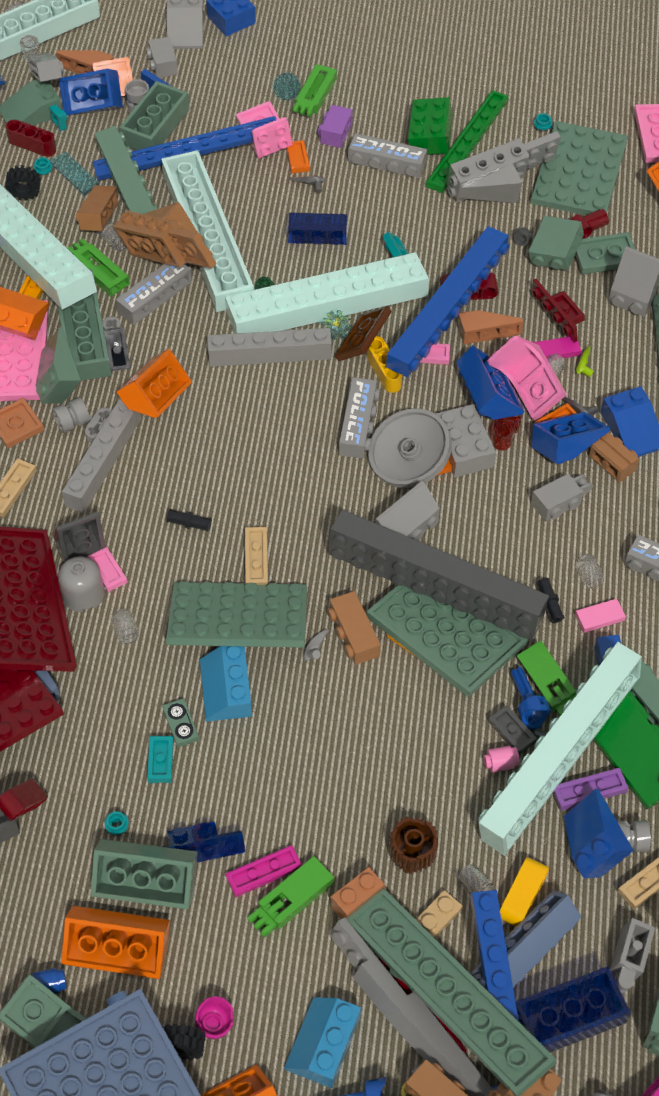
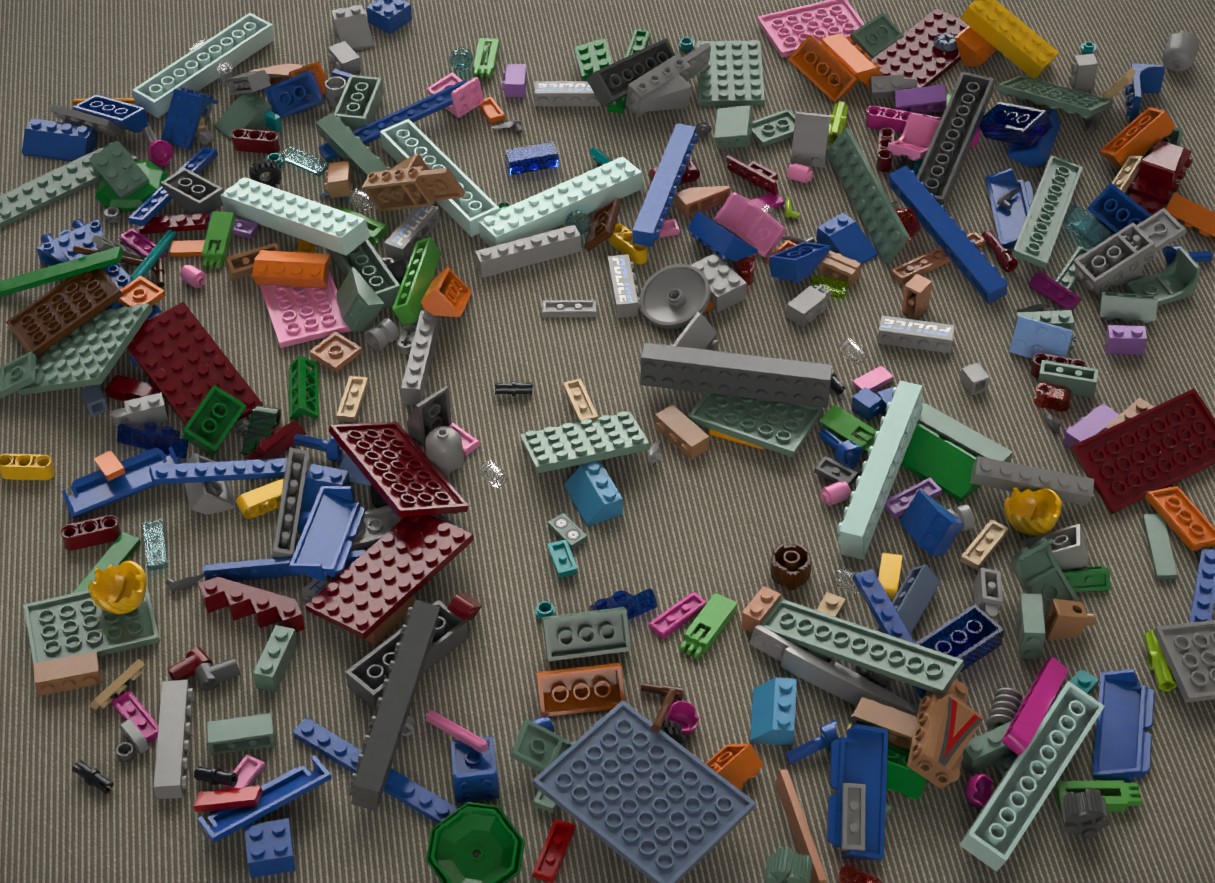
camera: 15 degrees left, 10 degrees down
(132, 355) = (416, 281): none -> bright green brick
(215, 976) = (669, 693): none -> reddish brown bar
(290, 431) = (569, 308): none -> light grey tile
(435, 154) = (612, 81): none -> dark grey brick
(581, 647) = (866, 404): none -> blue brick
(592, 221) = (758, 106): dark red piece -> none
(598, 477) = (837, 287): none -> clear neon green tile
(612, 319) = (800, 173): none -> bright pink brick

